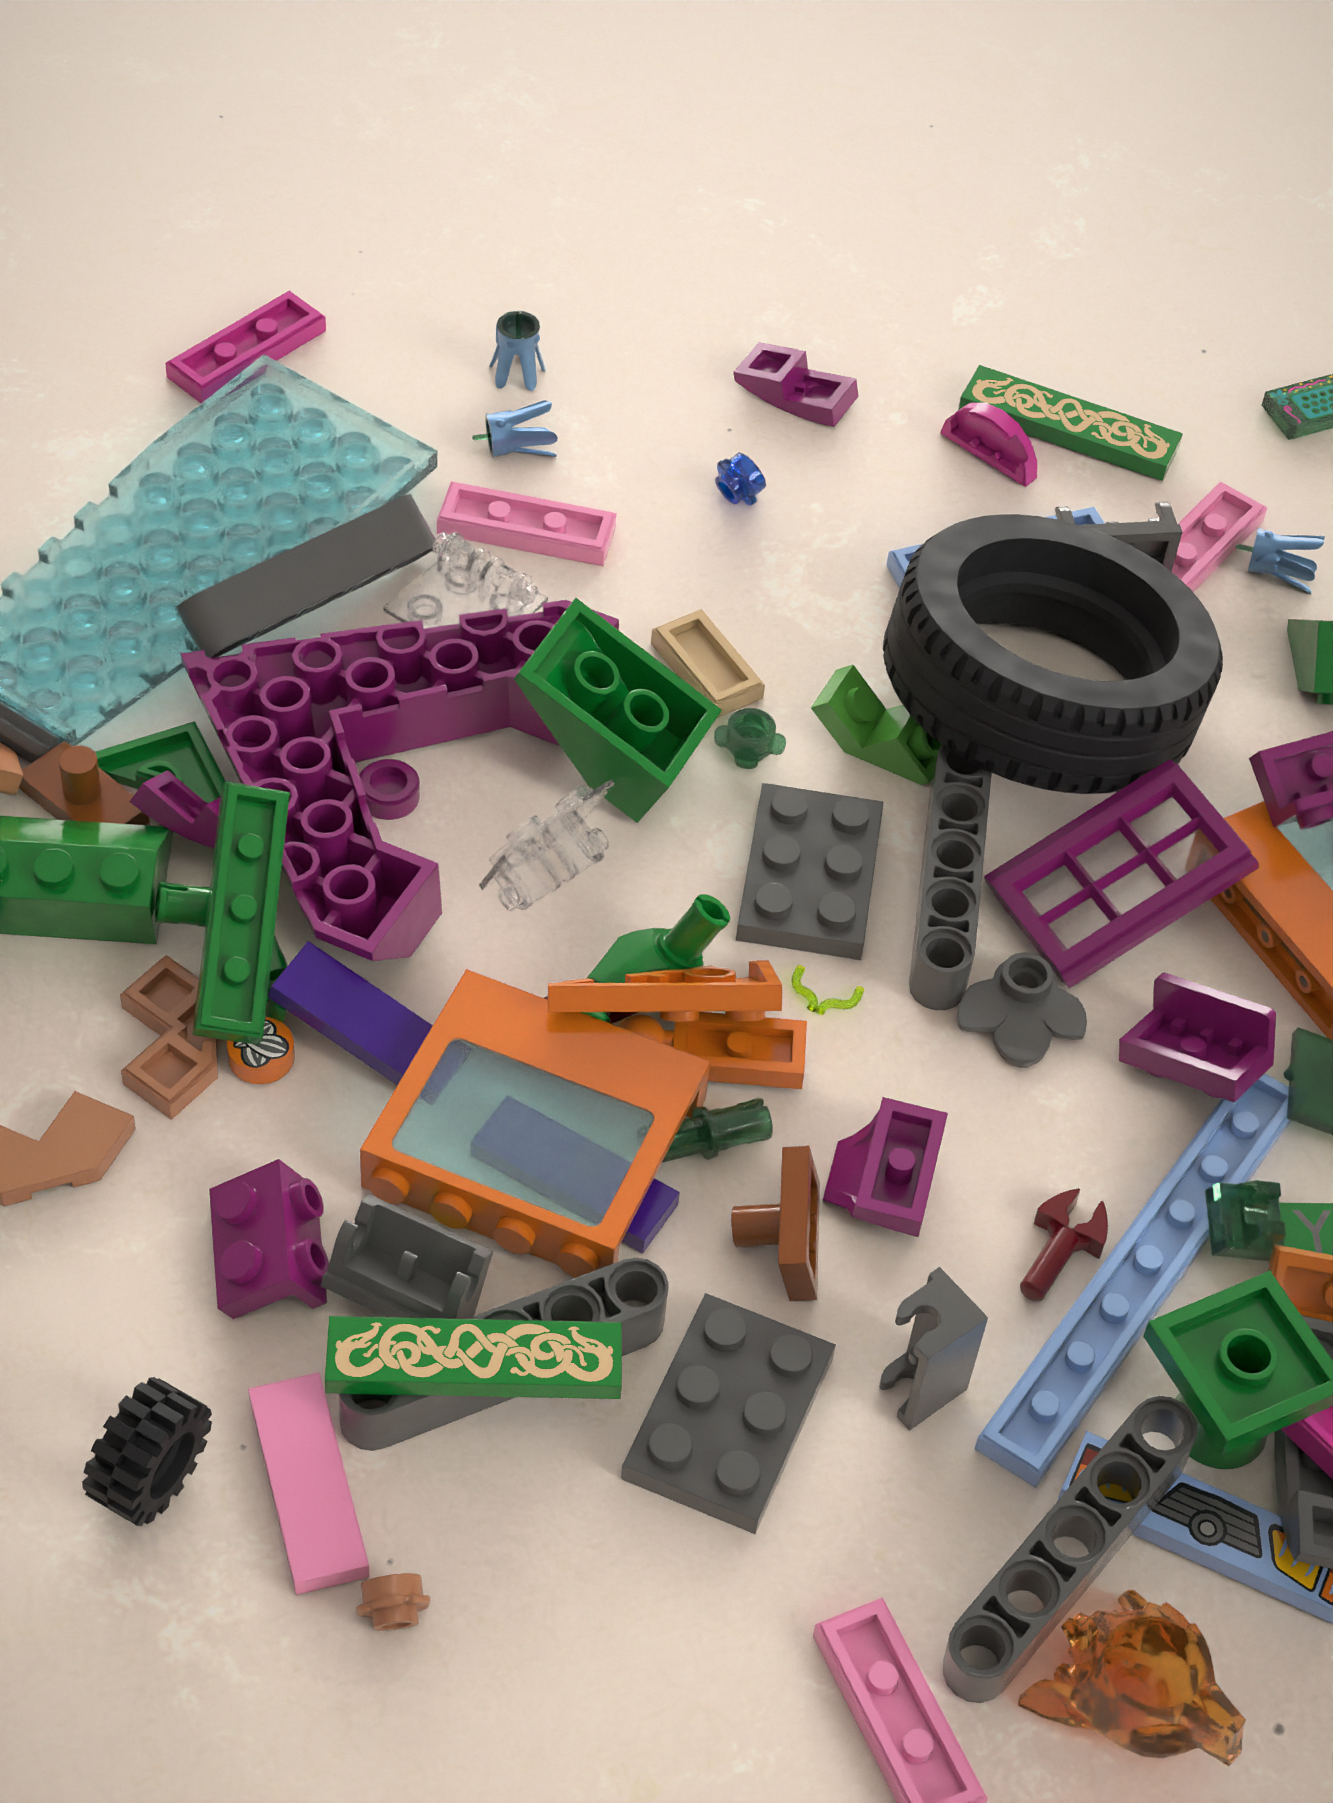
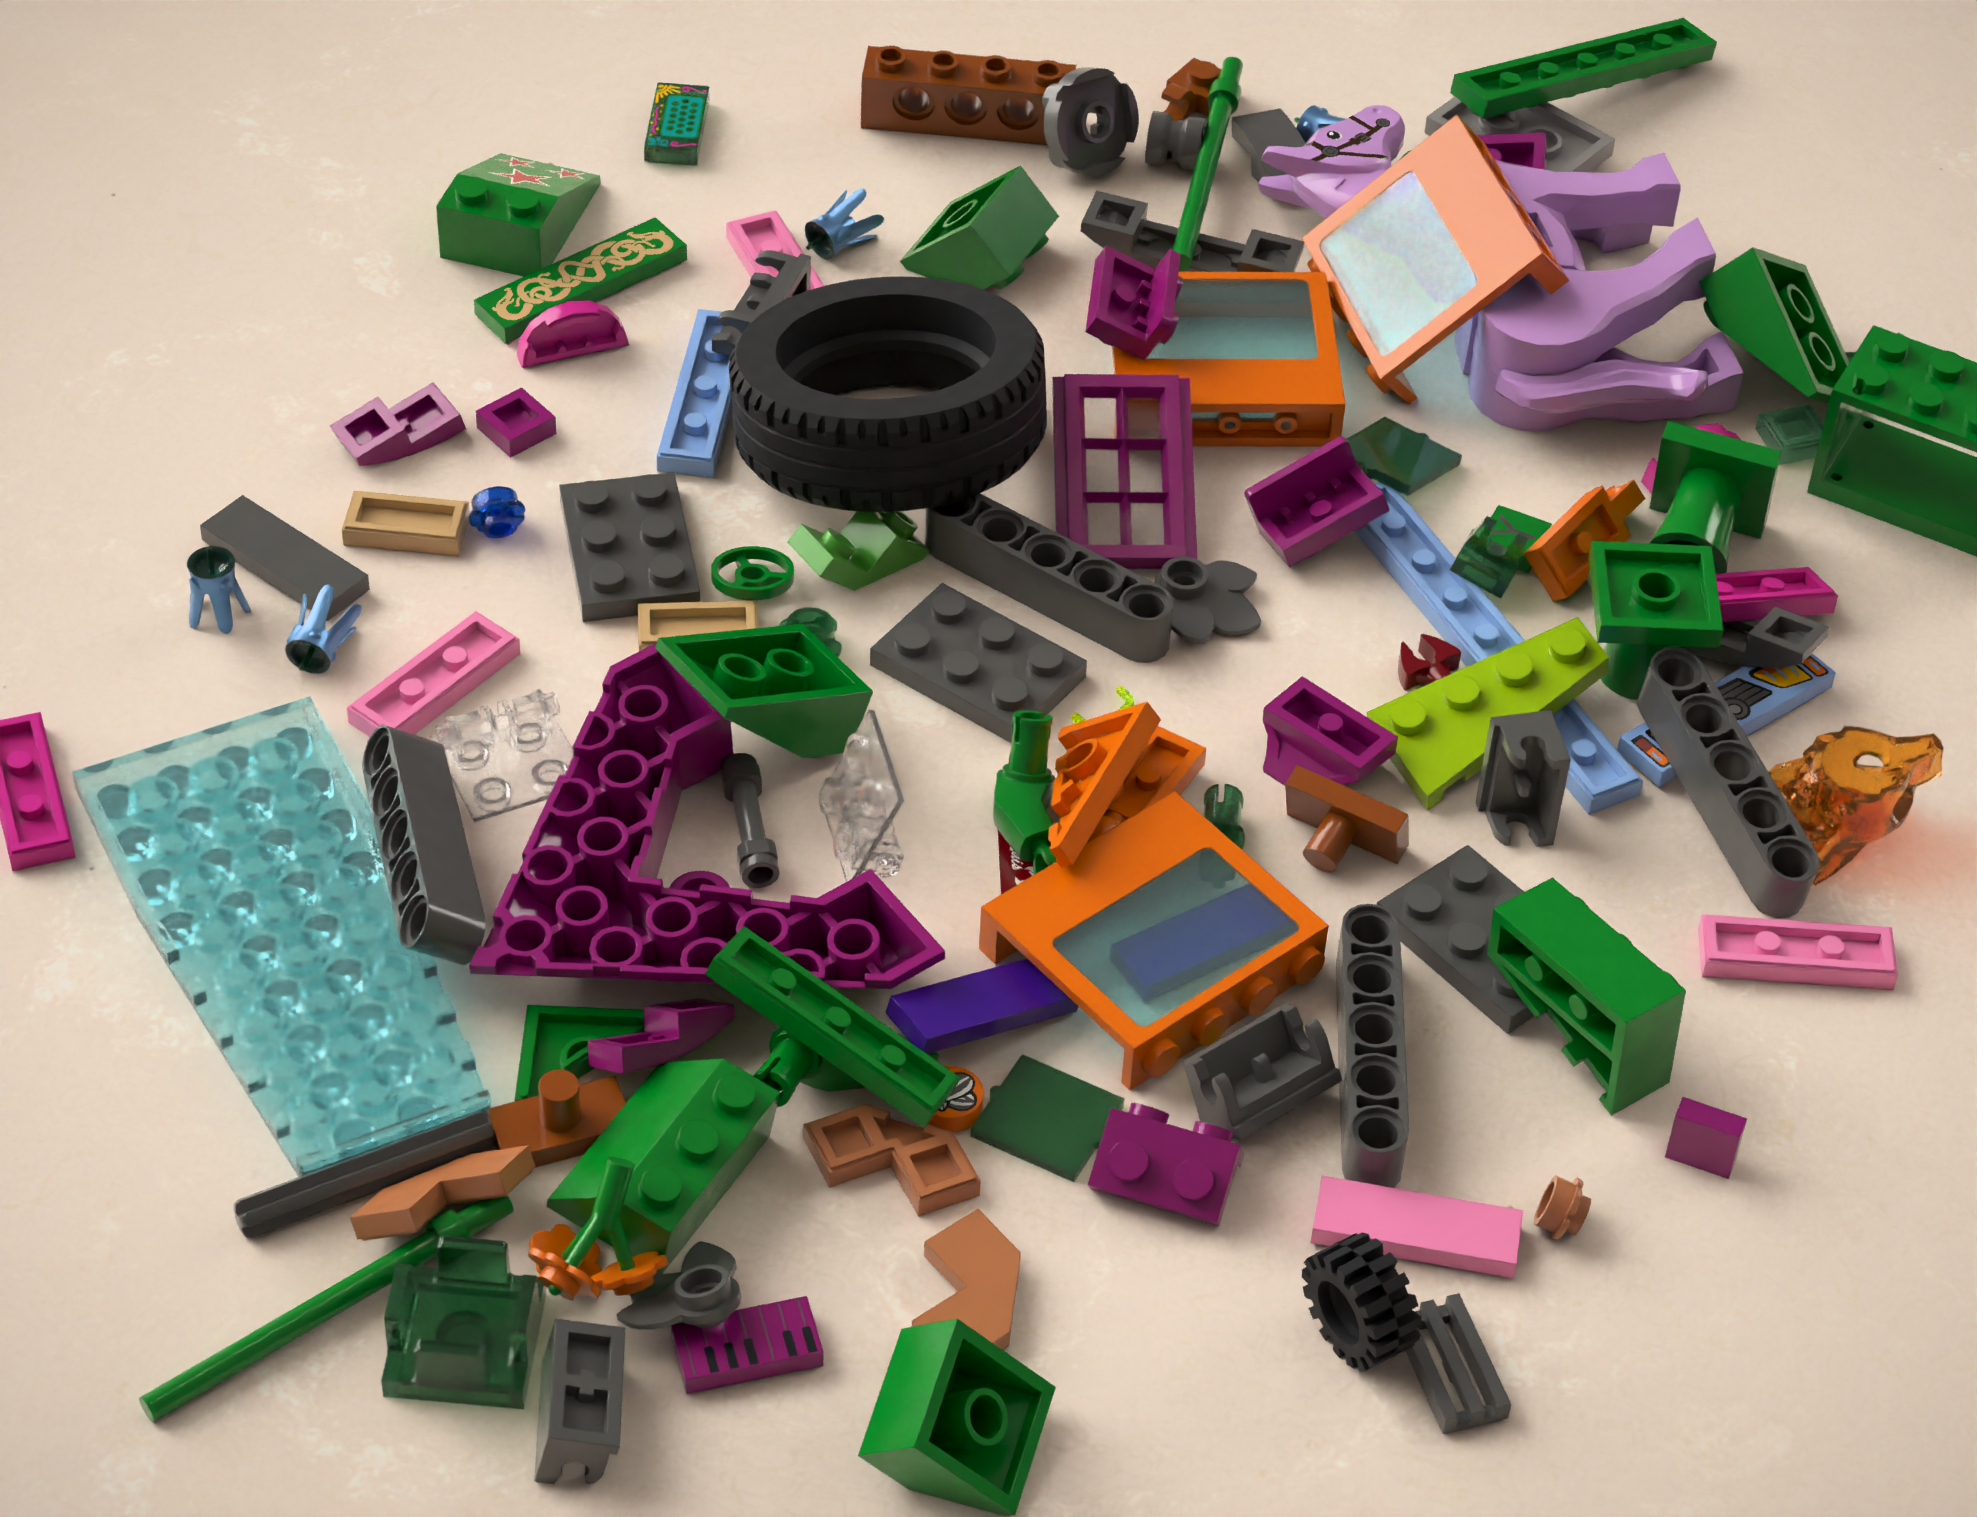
camera: 60 degrees left, 5 degrees down
(129, 1553) = (1475, 1414): none -> dark grey tile
(289, 1123) = (1046, 1117): none -> clear green piece
(459, 805) = (755, 853): none -> dark grey bar
(474, 1357) = (1394, 1048): green tile -> none
(556, 1703) = (1705, 1137): none -> magenta tile
(596, 381) = (283, 555): none -> dark grey tile
(660, 1507) = (1593, 986): none -> green wedge
(690, 433) = (405, 523): none -> tan tile
(773, 579) = (628, 544): none -> dark grey plate
(777, 674) = (753, 580): none -> green piece
(863, 451) = (516, 422): none -> magenta tile
(1032, 1287) = (1448, 721): none -> lime wing
(1111, 343) = (512, 213): none -> green slope

